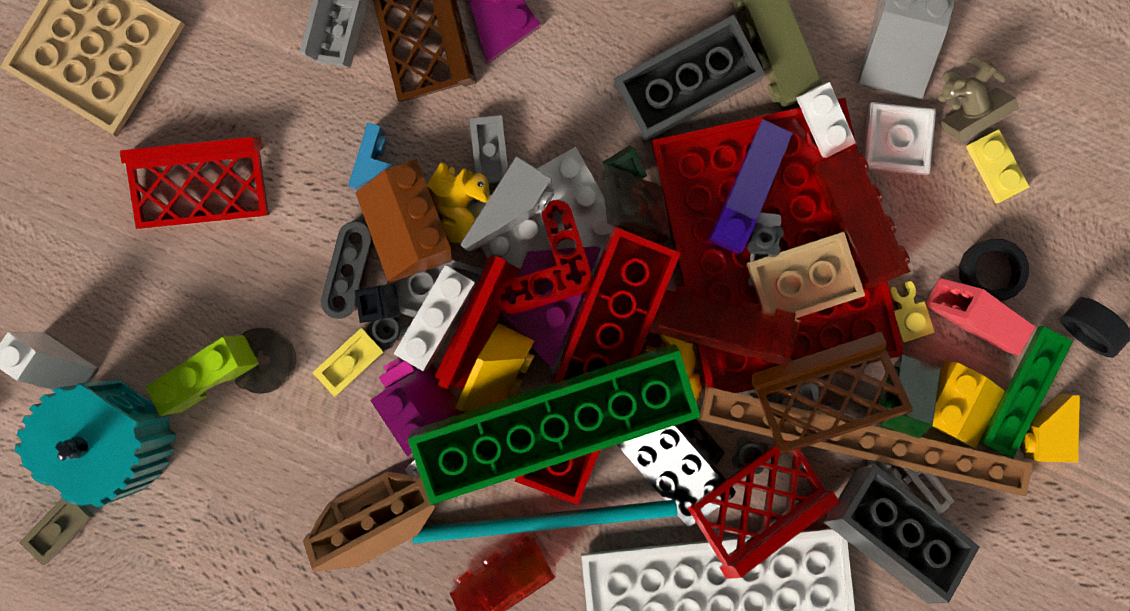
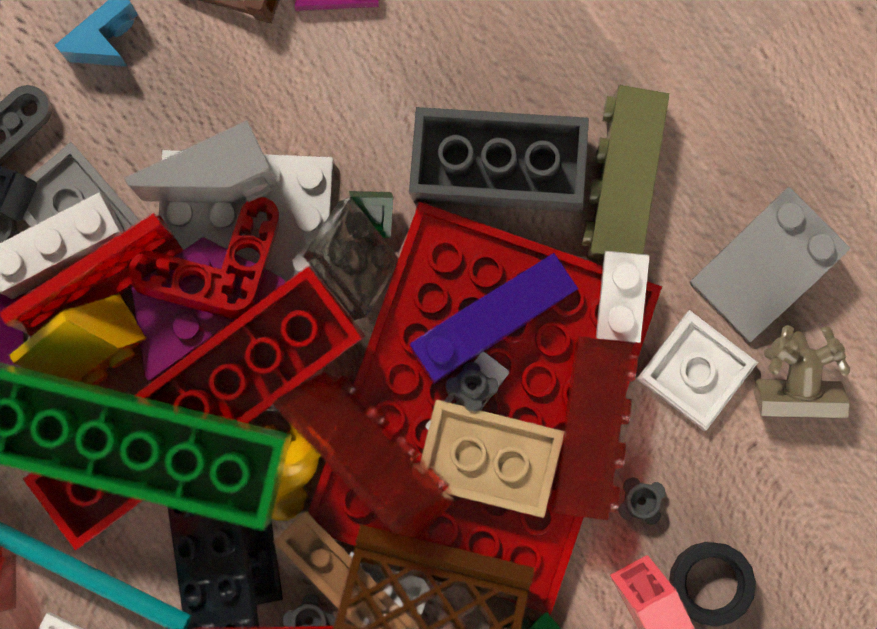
camera: 30 degrees right, 5 degrees down
(403, 222) = (89, 121): dark orange slope -> none
(452, 196) = (163, 124): yellow animal -> none
(489, 147) = (236, 97): light grey plate -> none
(911, 317) = (585, 580): light yellow plate -> none
(924, 242) = (650, 510): none -> dark grey plate
(997, 166) = (789, 469): light yellow plate -> none

